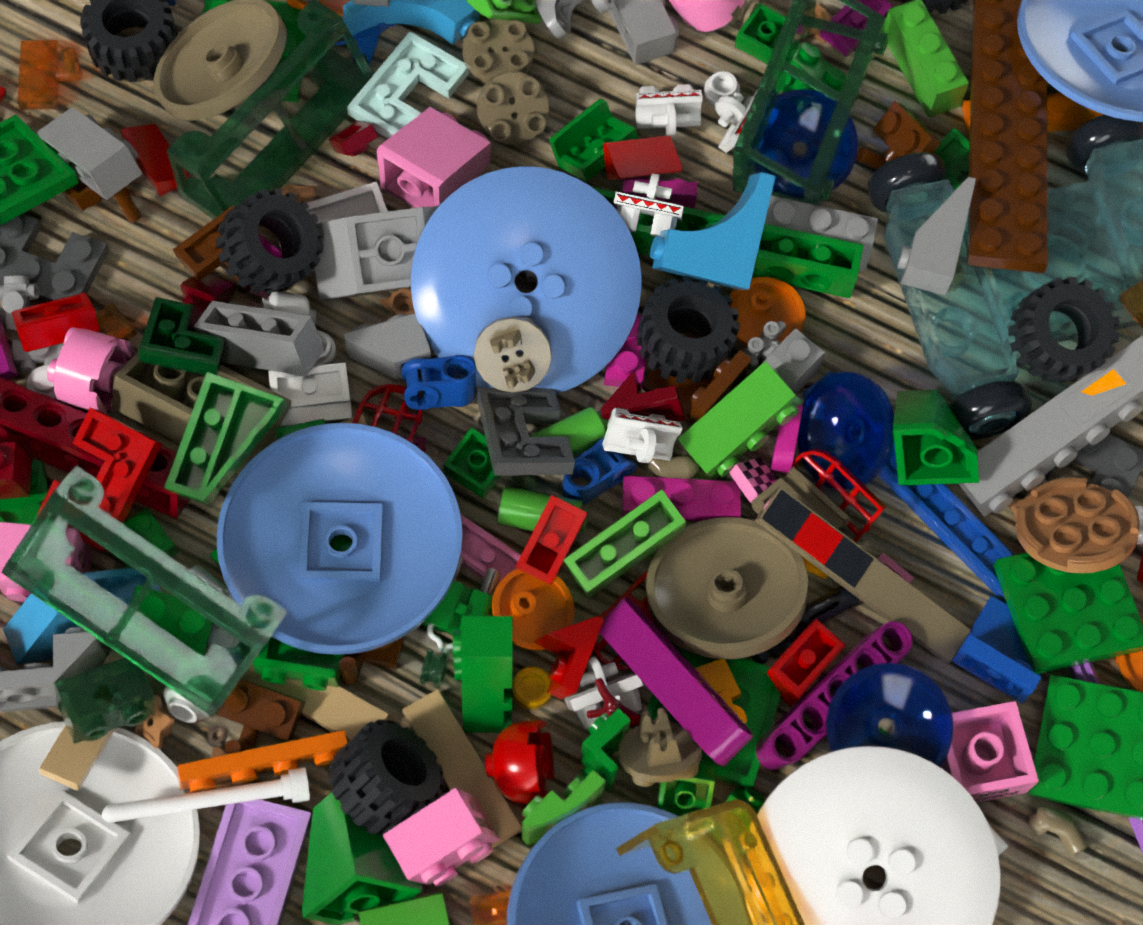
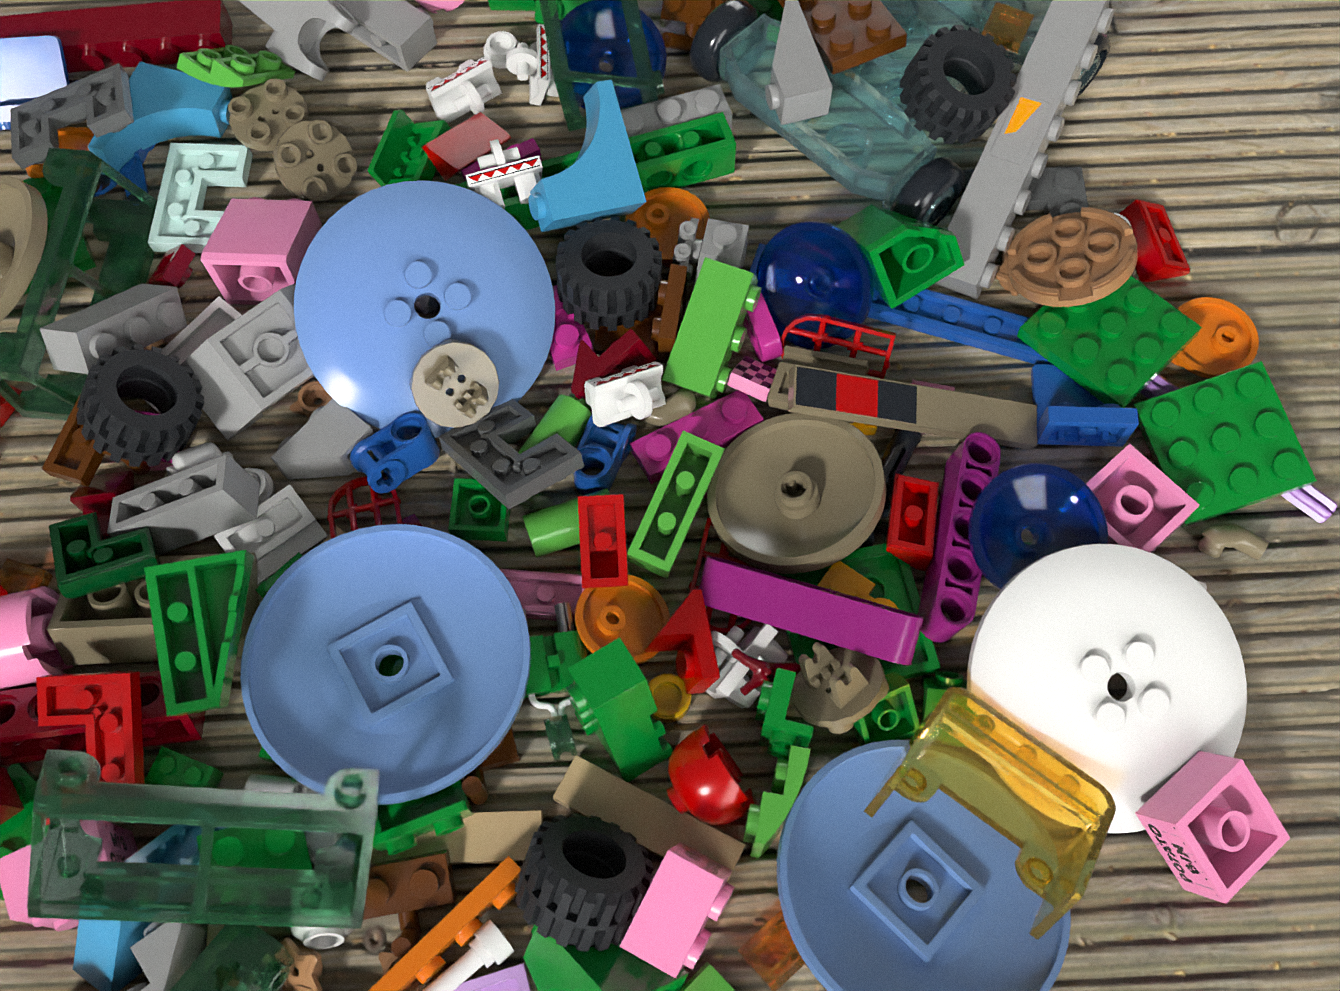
camera: 25 degrees left, 0 degrees up
(285, 165) = (128, 318): none -> light grey brick

